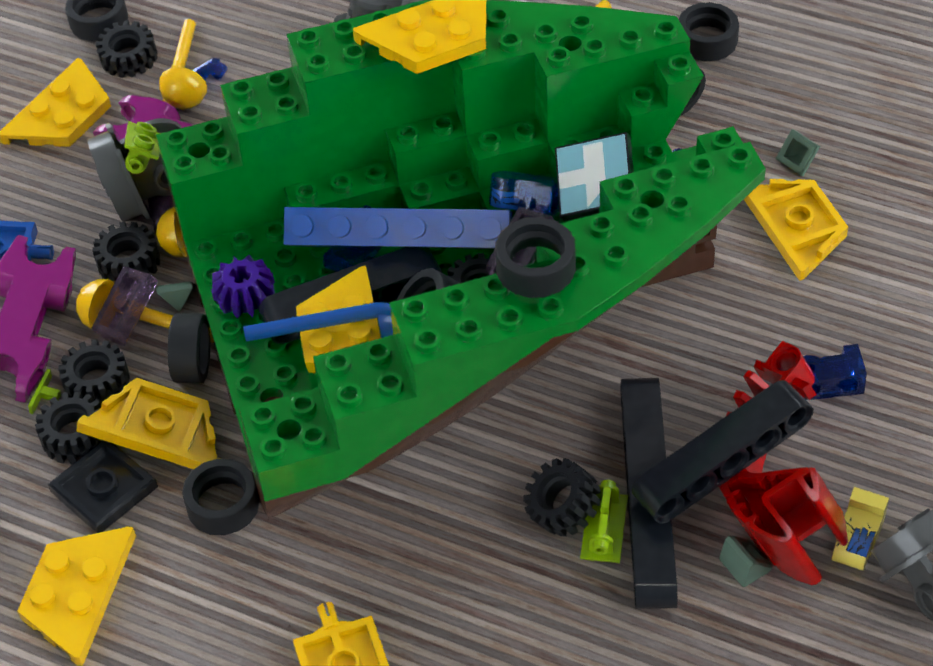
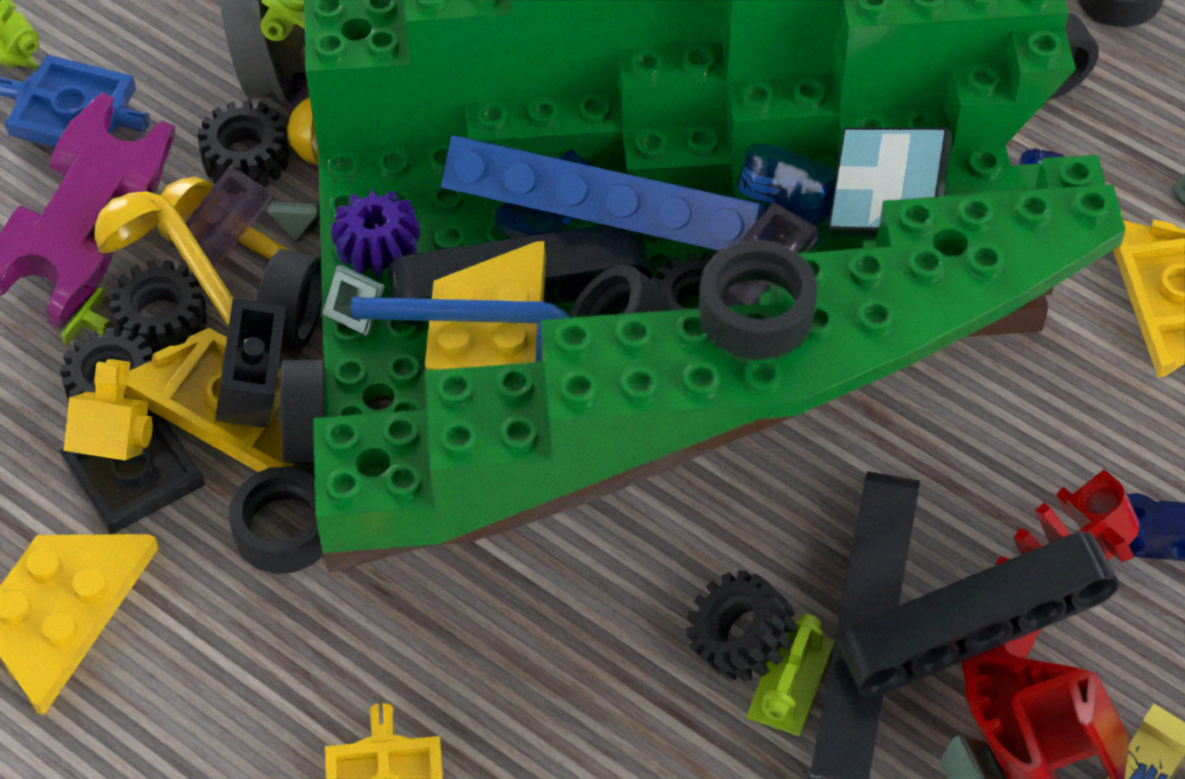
camera: 10 degrees right, 5 degrees up
(66, 310) = (135, 215): none -> yellow piece
(81, 454) = (106, 420): none -> yellow brick
(174, 393) = (250, 363): none -> black brick
(220, 417) = (301, 402): none -> black tyre
(232, 334) = (343, 288): none -> sand green slope

